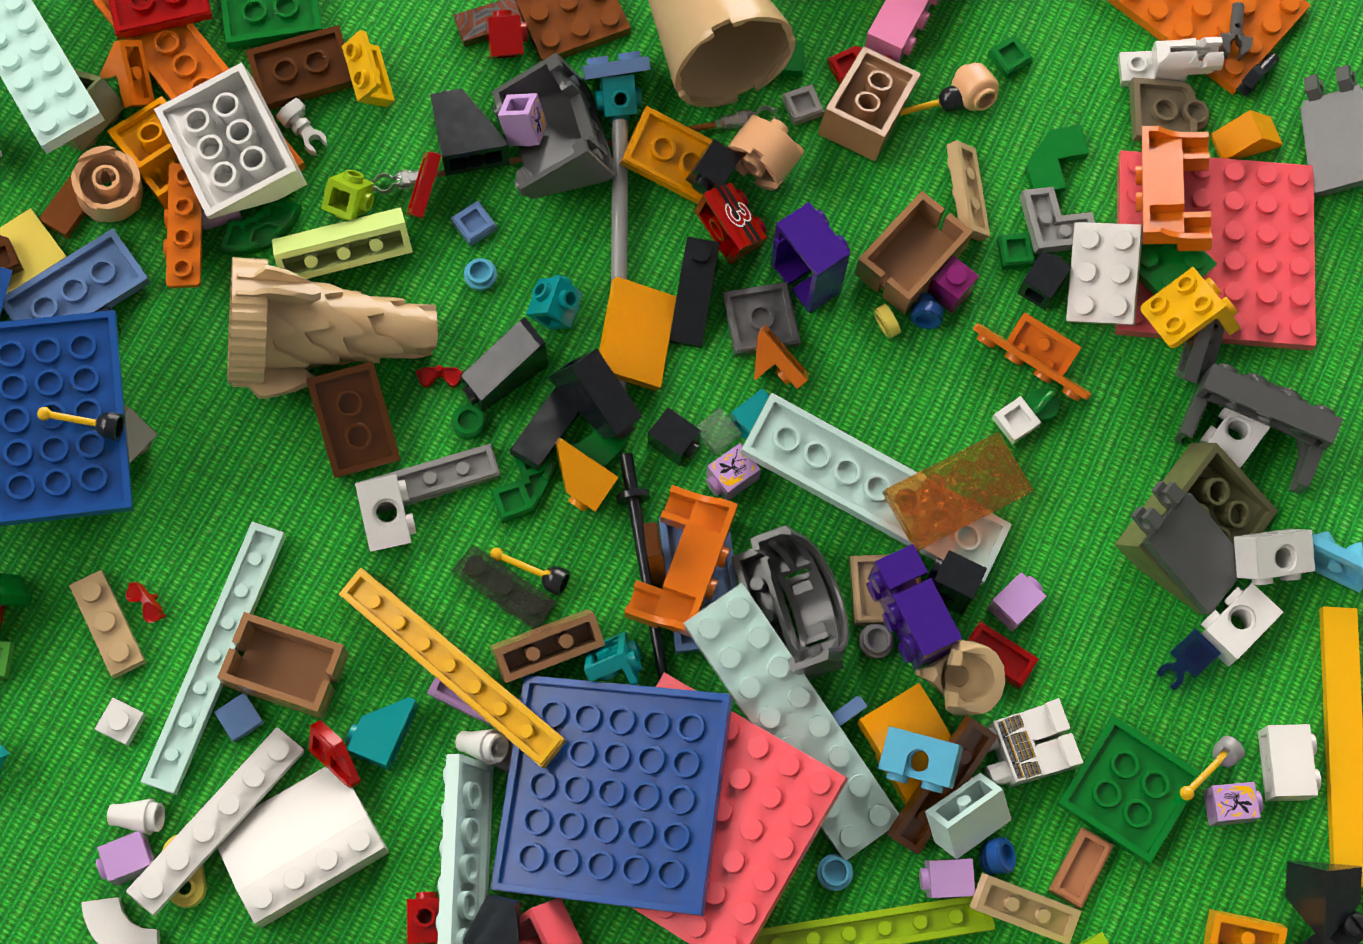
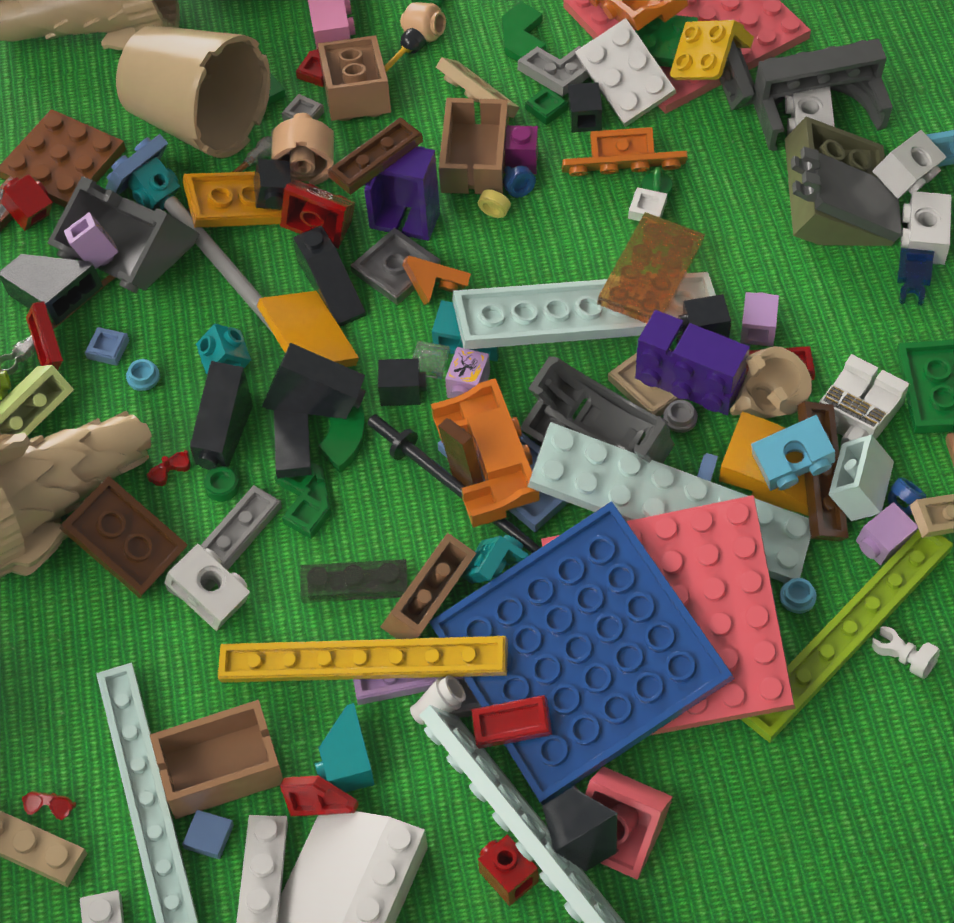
camera: 30 degrees left, 15 degrees down
(517, 810) = (511, 722): none -> red tile
(553, 578) = (388, 545): hinge -> none
(583, 477) = (351, 451): light orange slope -> none
(794, 223) = (375, 155): none -> reddish brown tile

